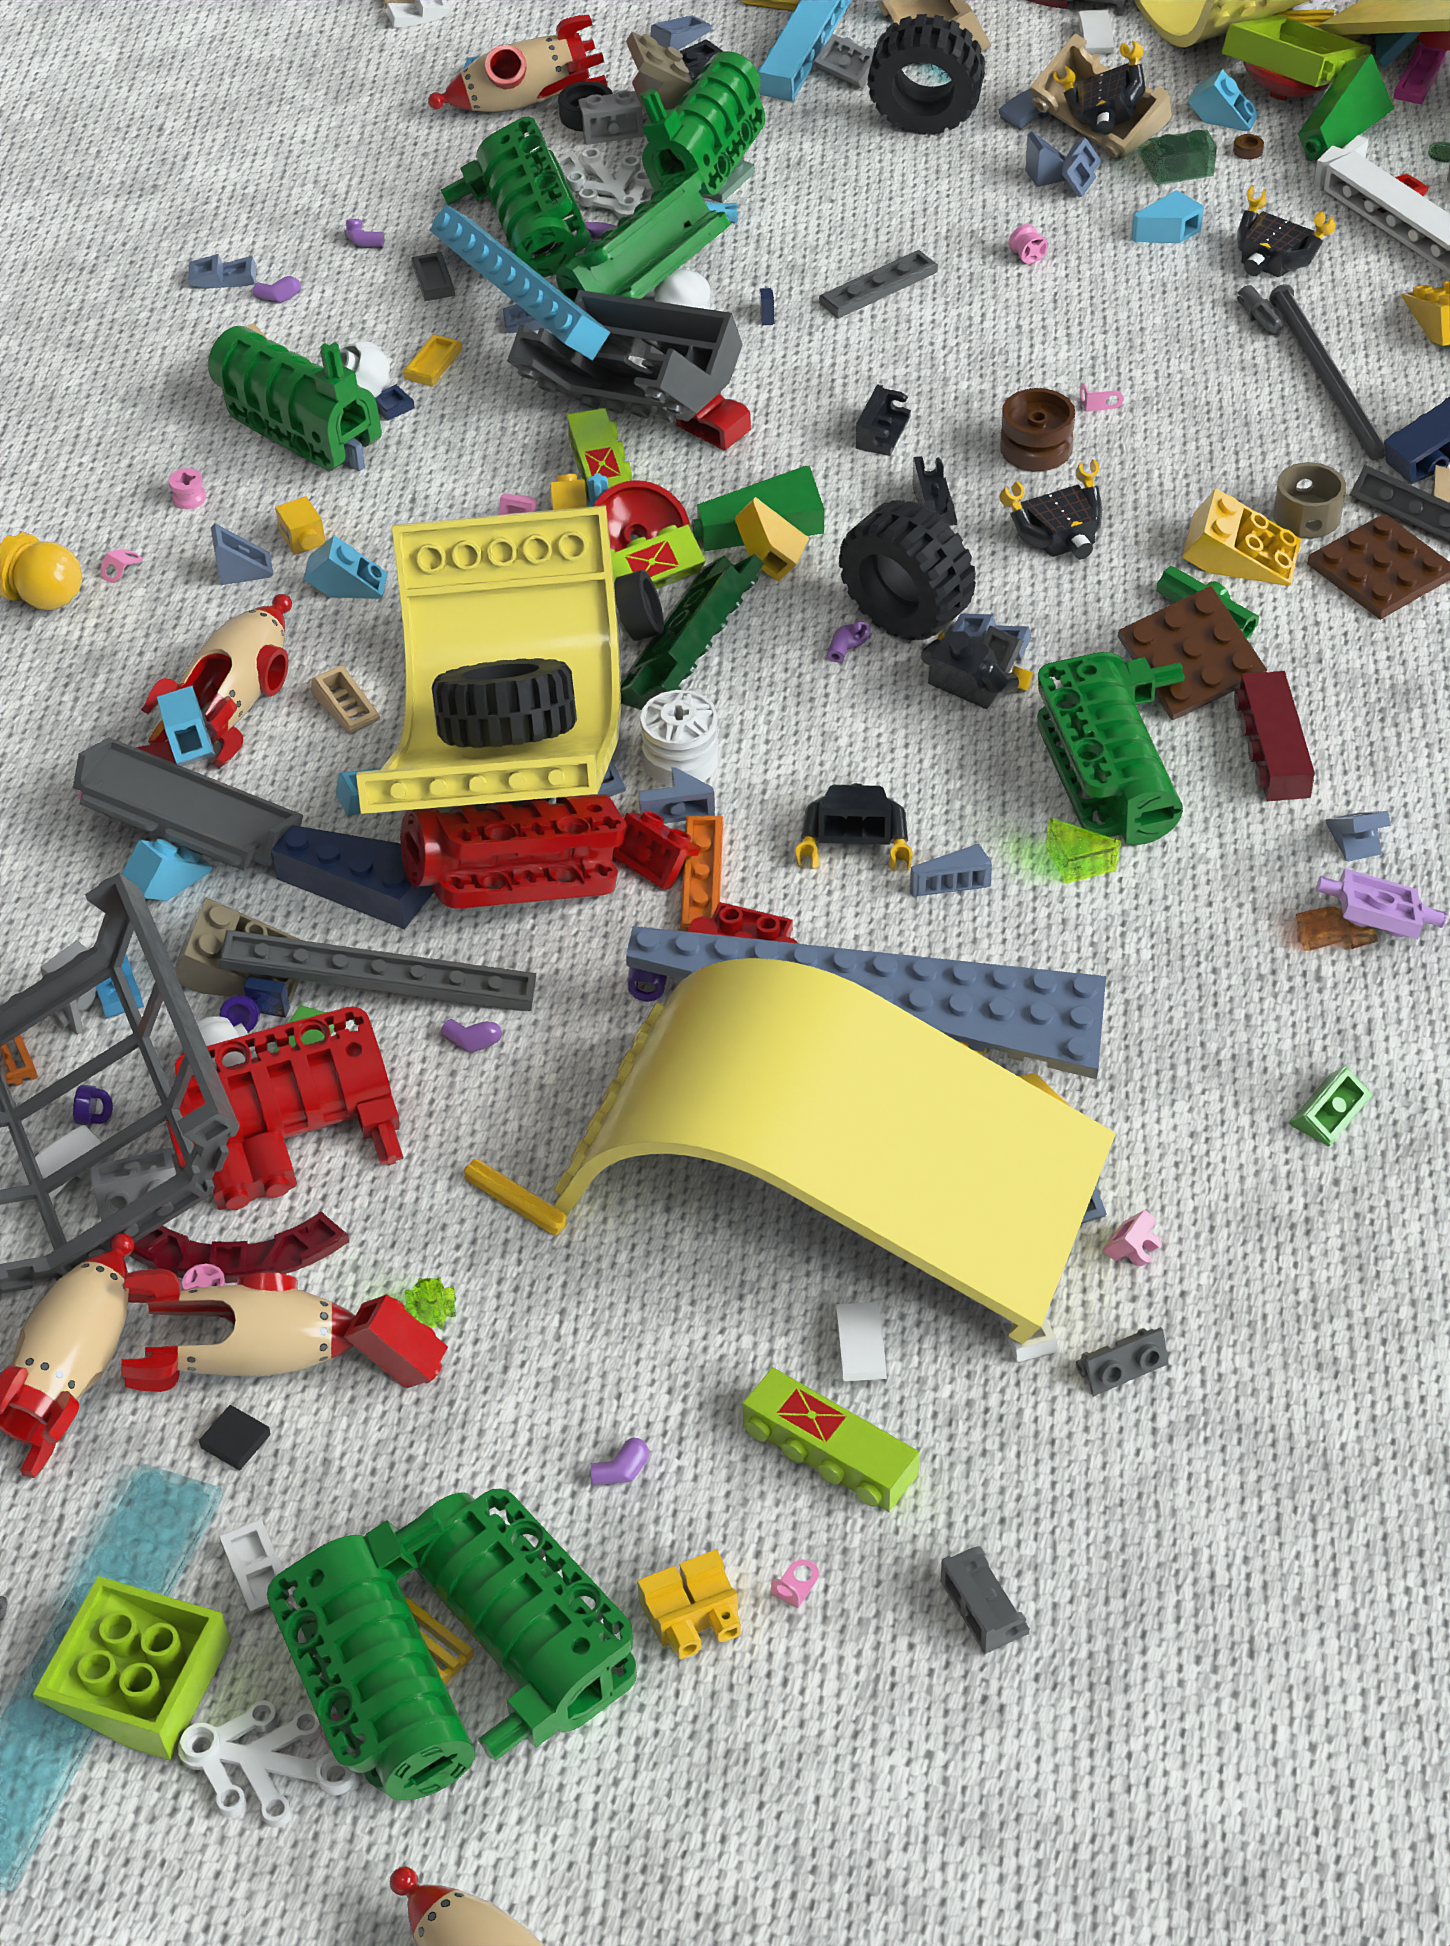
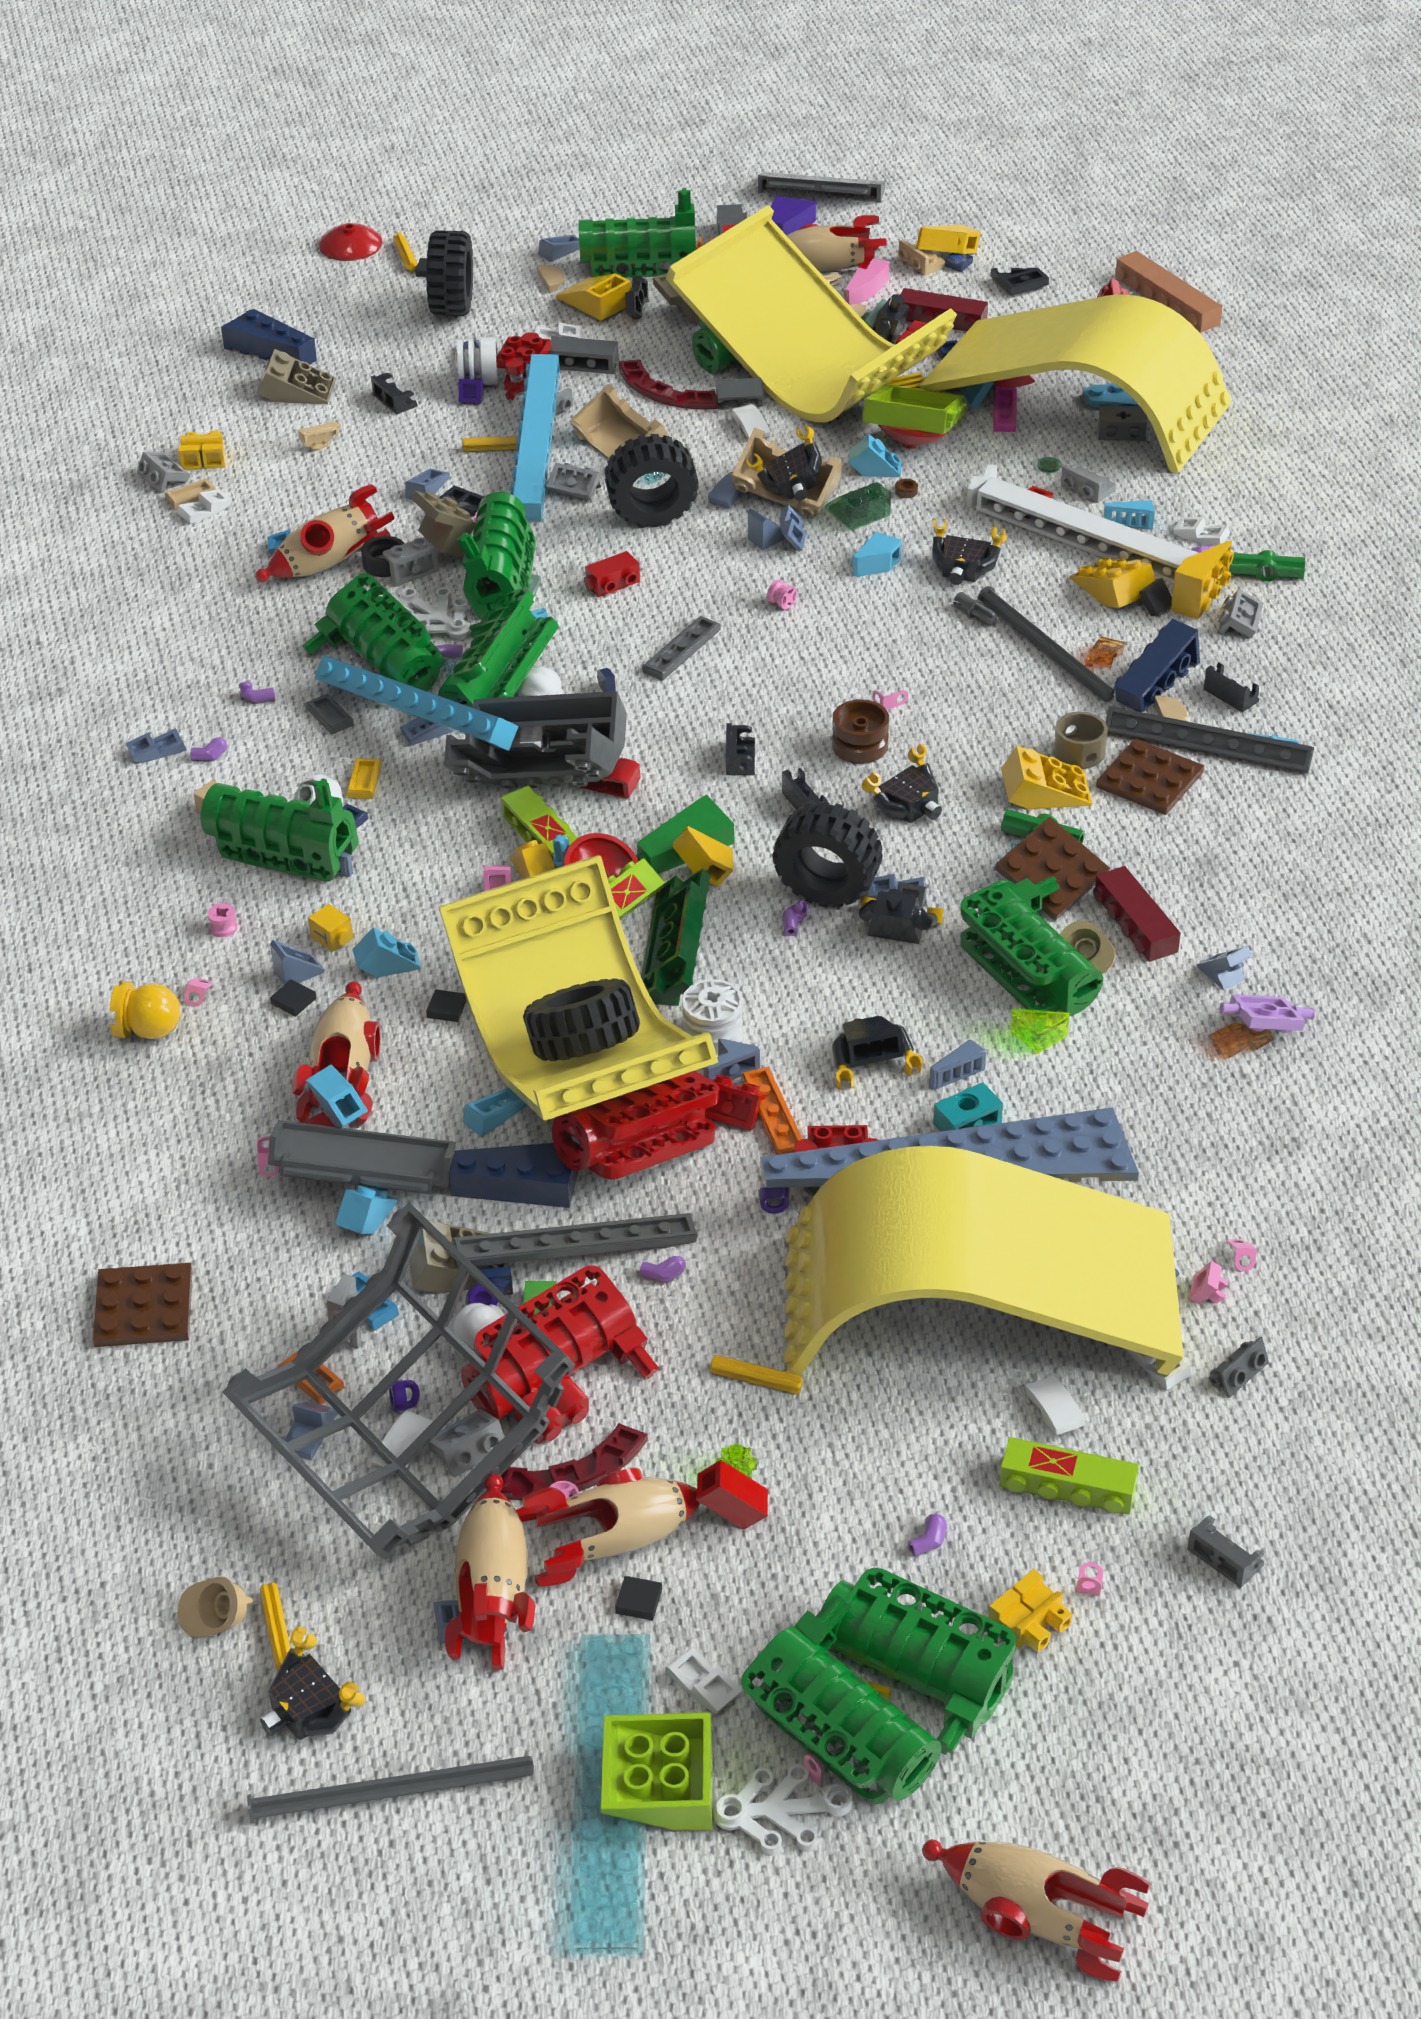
camera: 20 degrees left, 5 degrees down
(220, 598) = (293, 997): none -> black piece
(340, 678) = (415, 1049): tan slope -> none
(384, 649) = (446, 1005): none -> black piece
(639, 605) = (634, 927): black tyre -> none
(837, 179) = (612, 574): none -> red brick
(937, 932) = (968, 1109): none -> teal brick
(1187, 762) = (1091, 944): none -> tan piece
(1200, 1205) = (1242, 1249): none -> bright pink piece
(1332, 1106) = (1295, 1160): bright green slope -> none
(1347, 108) = (970, 446): green slope -> none
(1398, 395) = (1104, 651): none -> clear orange slope

